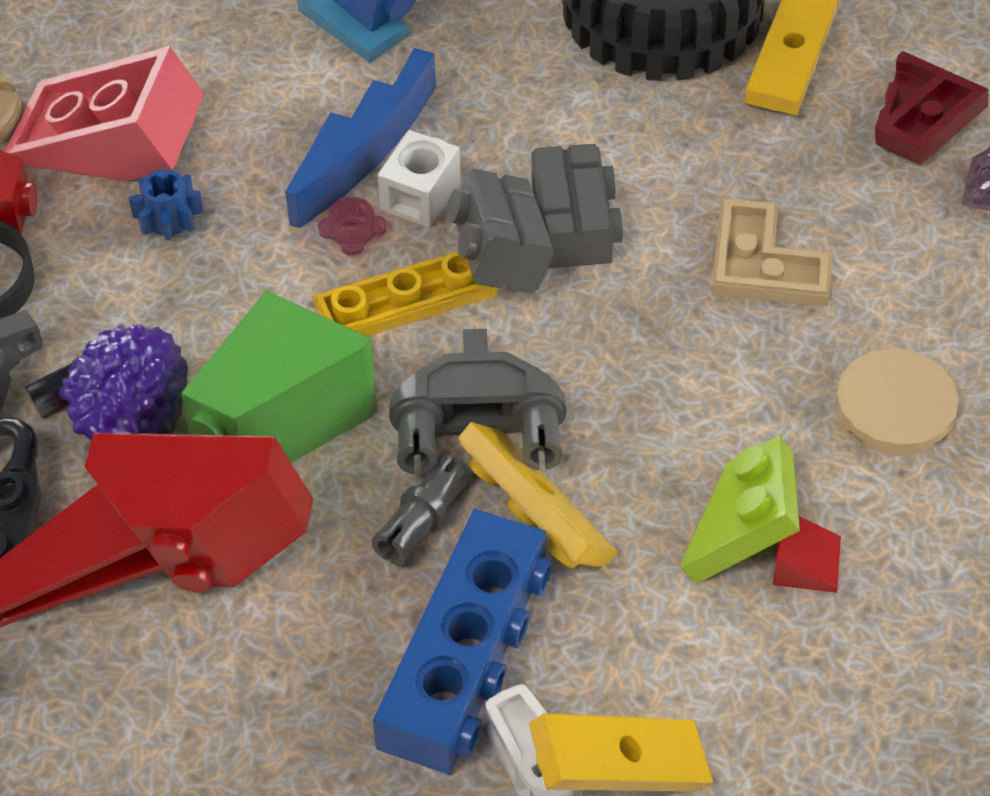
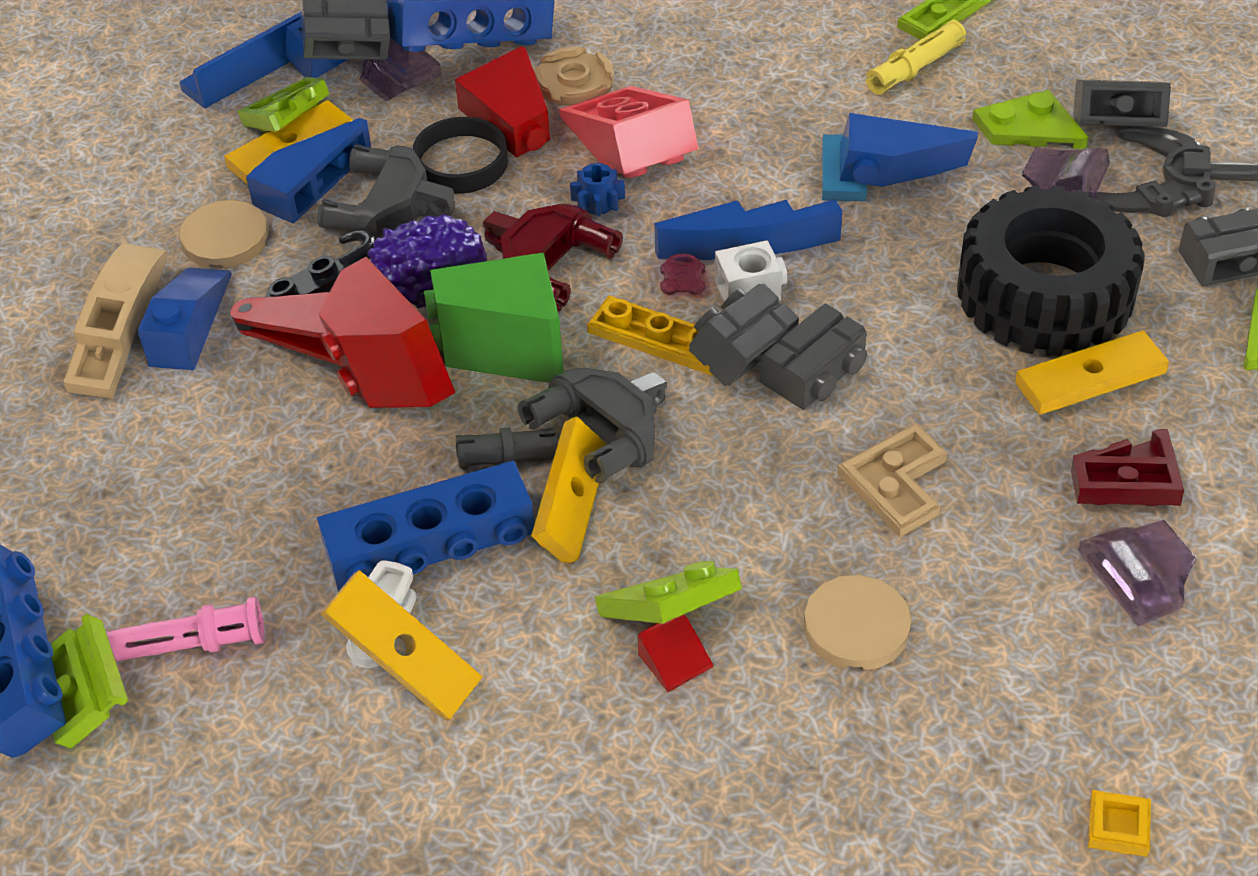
camera: 50 degrees right, 5 degrees down
(177, 291) = (551, 232): none -> dark red connector

